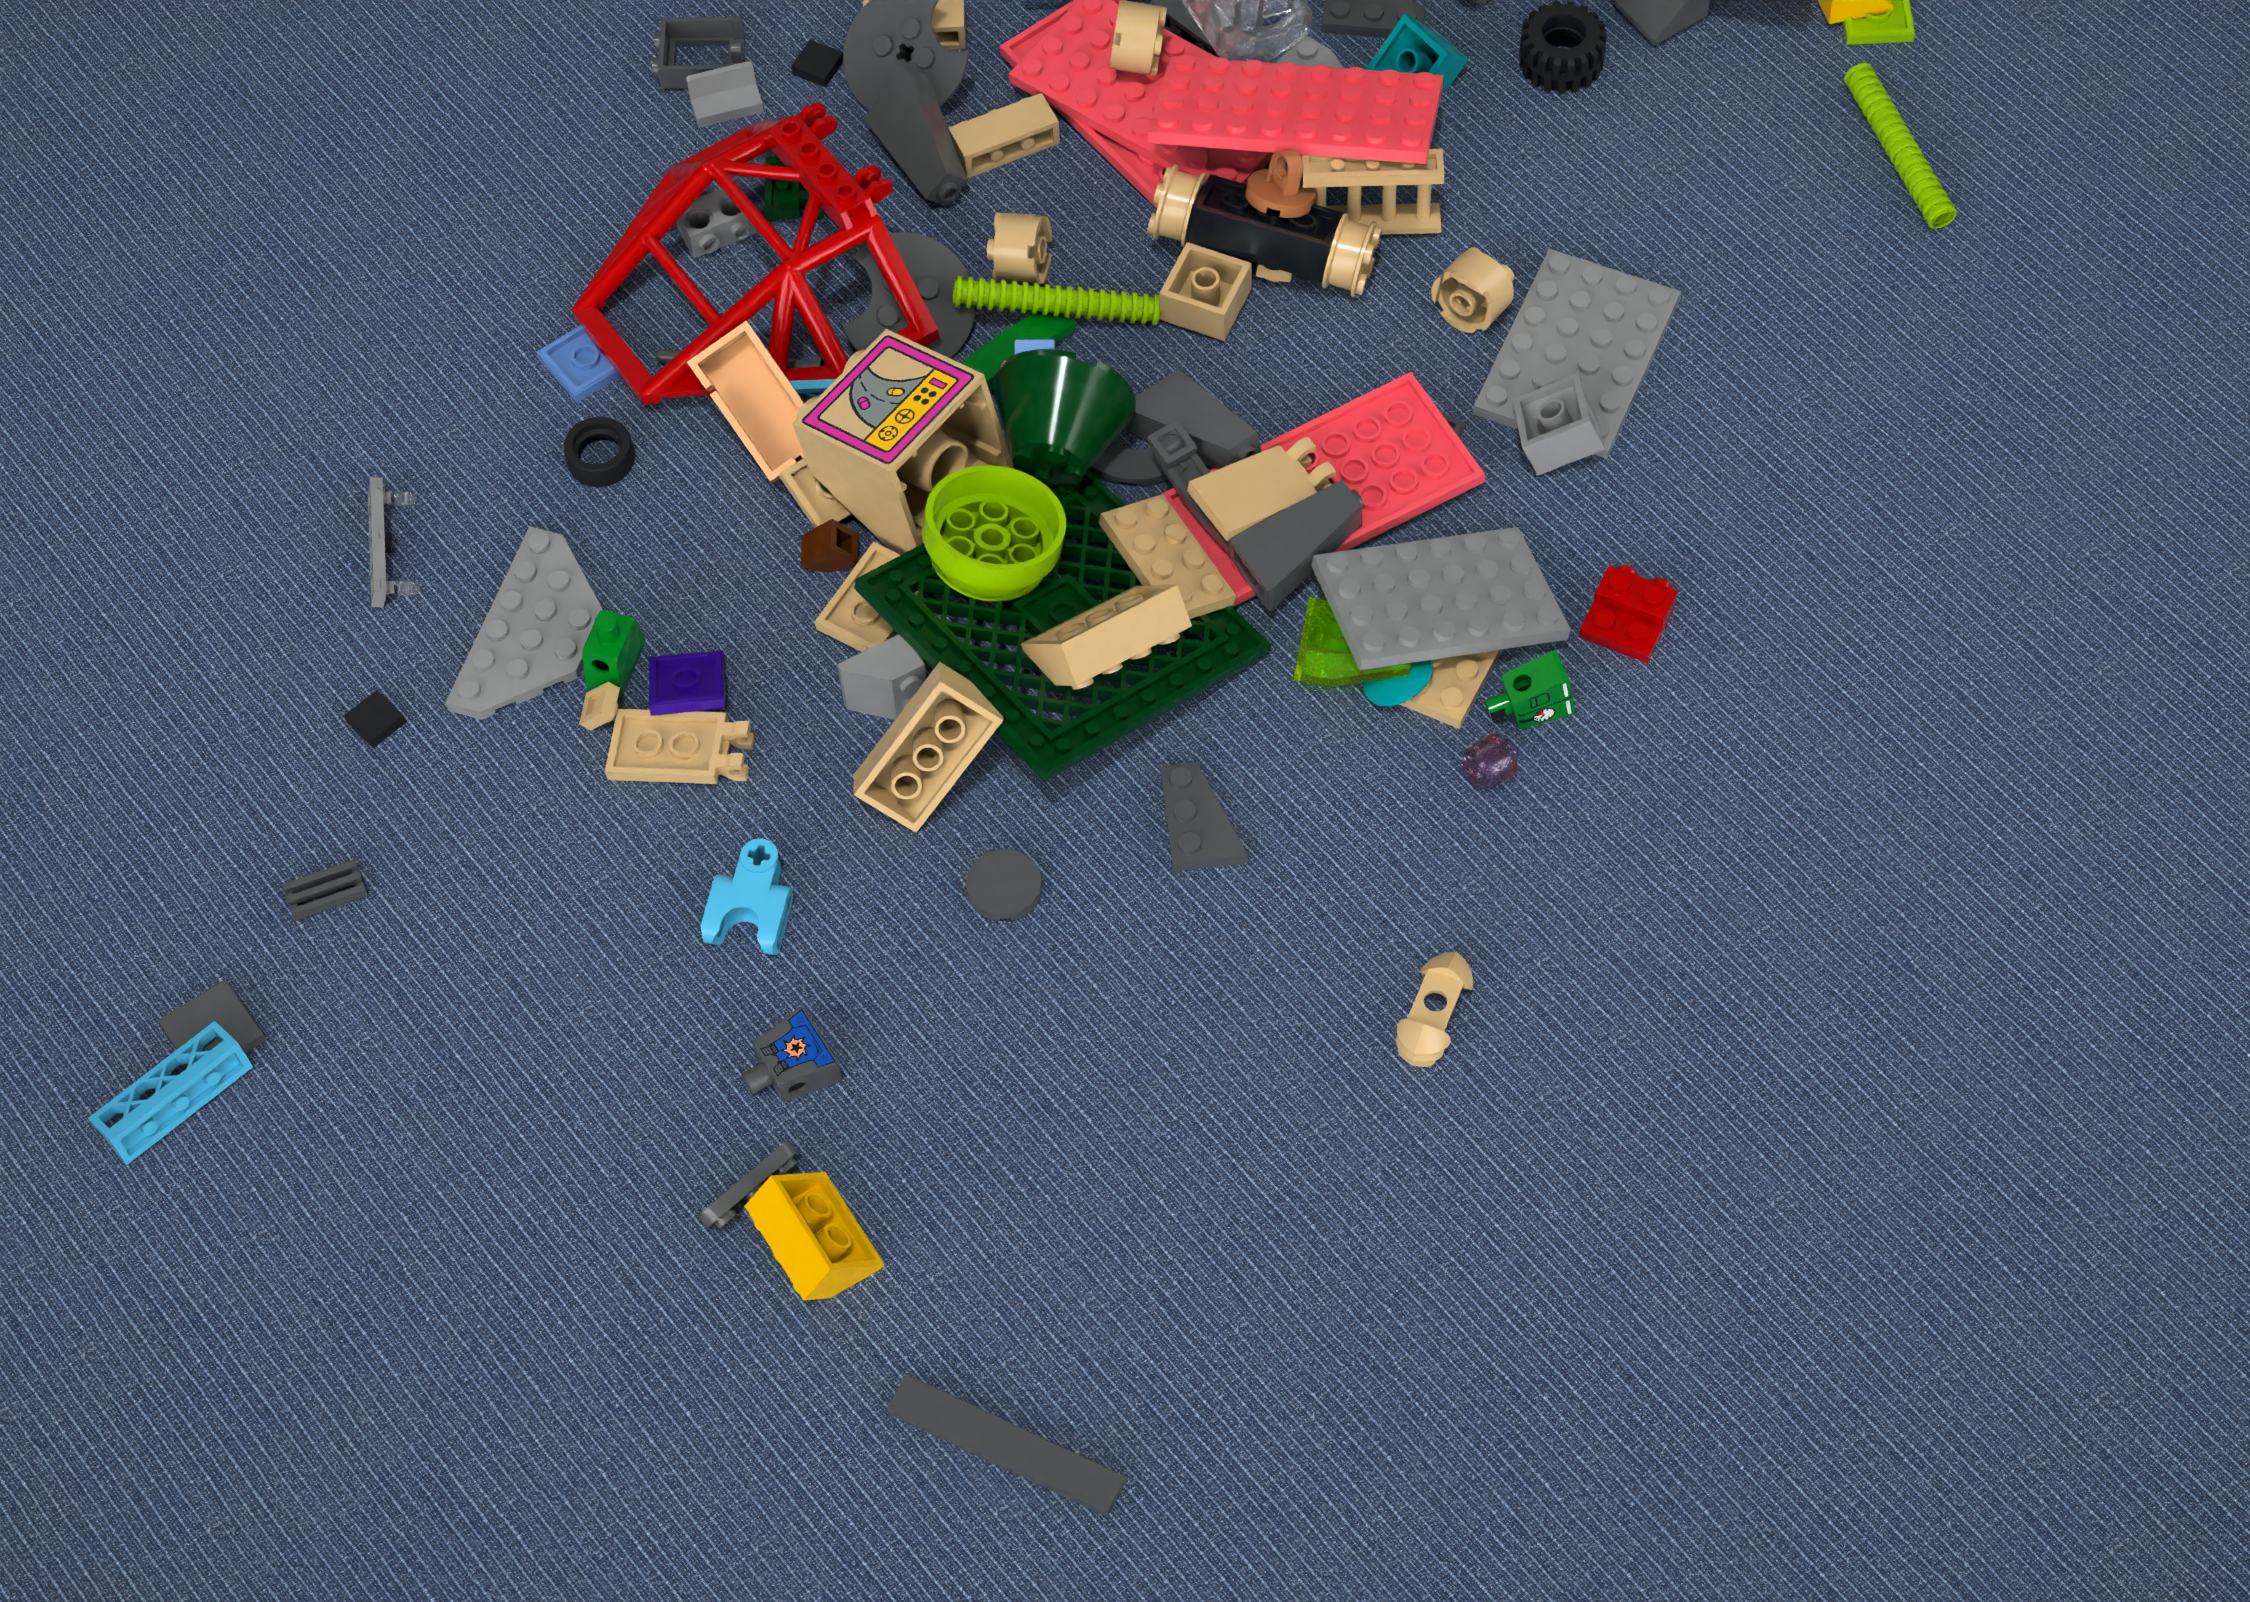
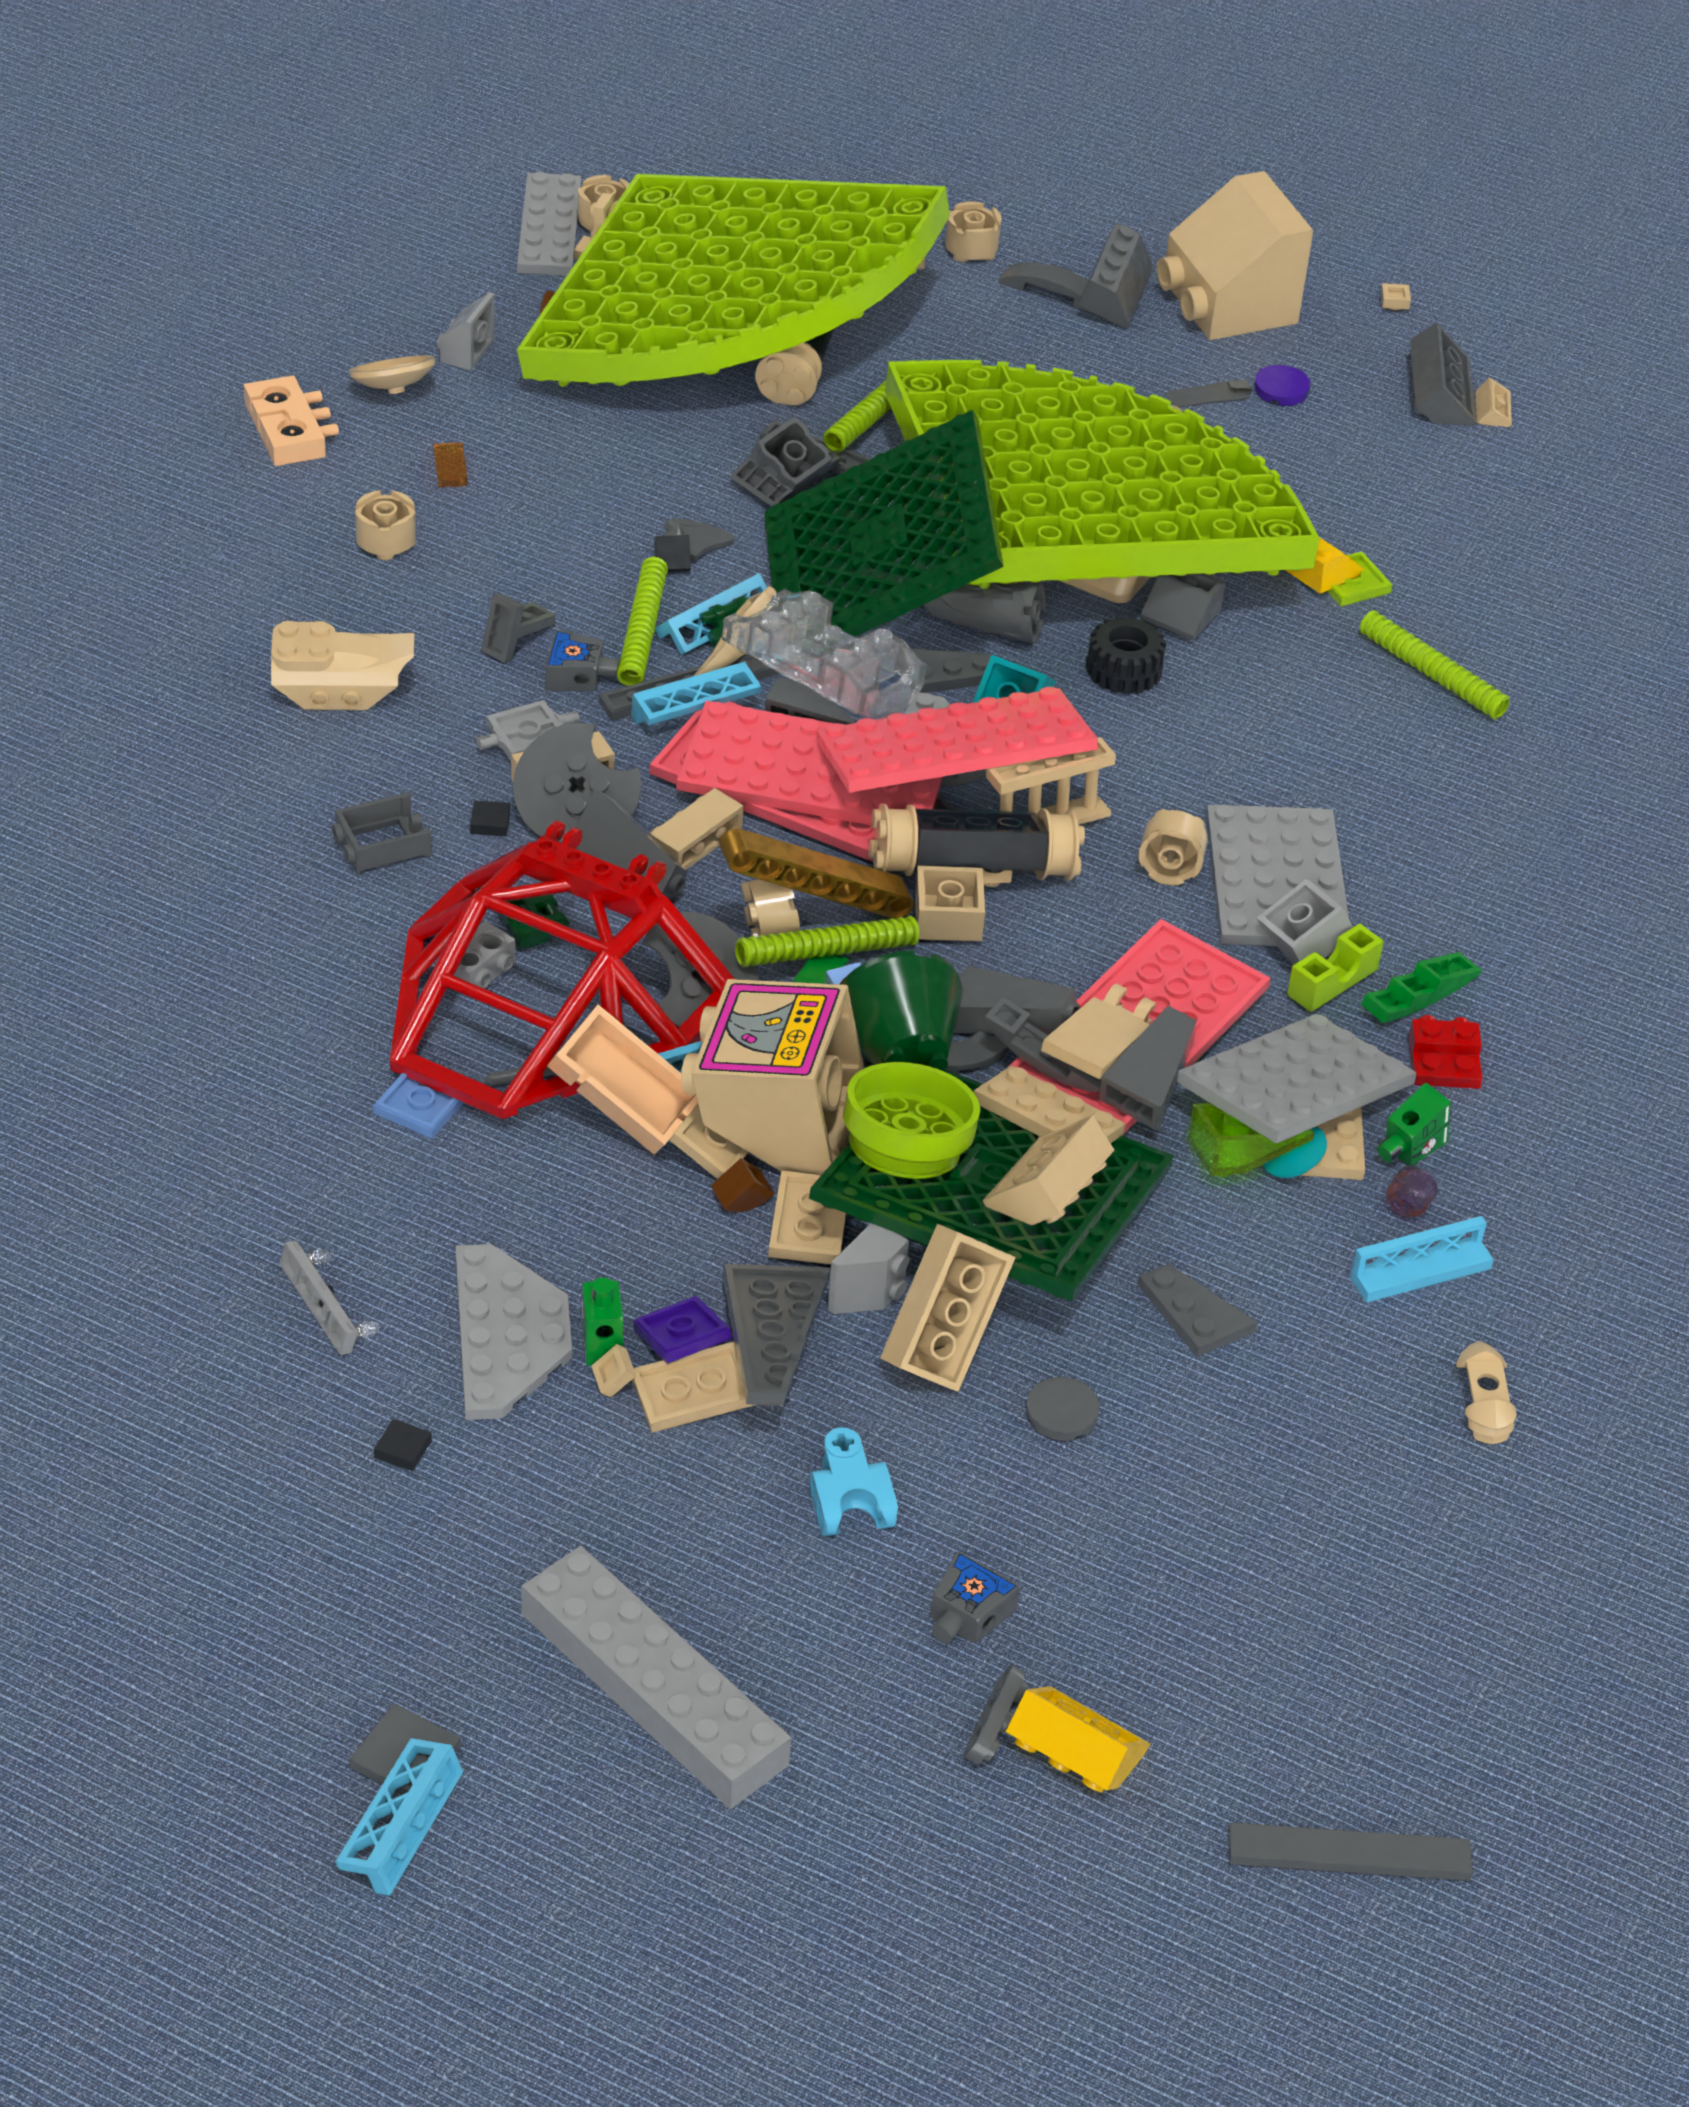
camera: 30 degrees left, 15 degrees down
(324, 884) = (437, 1597): dark grey tile -> none
(462, 1036) = (656, 1677): none -> light grey brick
(604, 473) = (483, 1149): black tyre -> none
(724, 94) = (423, 860): light grey panel -> none
(766, 701) = (771, 1323): none -> dark grey wing
(1066, 224) = (815, 873): none -> pearl gold beam
(1138, 37) = (785, 719): tan brick -> none
(1281, 188) = (978, 801): nougat tile -> none
(1457, 844) = (1420, 1264): none -> medium azure fence
(1589, 477) = (1319, 980): none -> lime arch
(1659, 527) = (1427, 984): none -> green slope

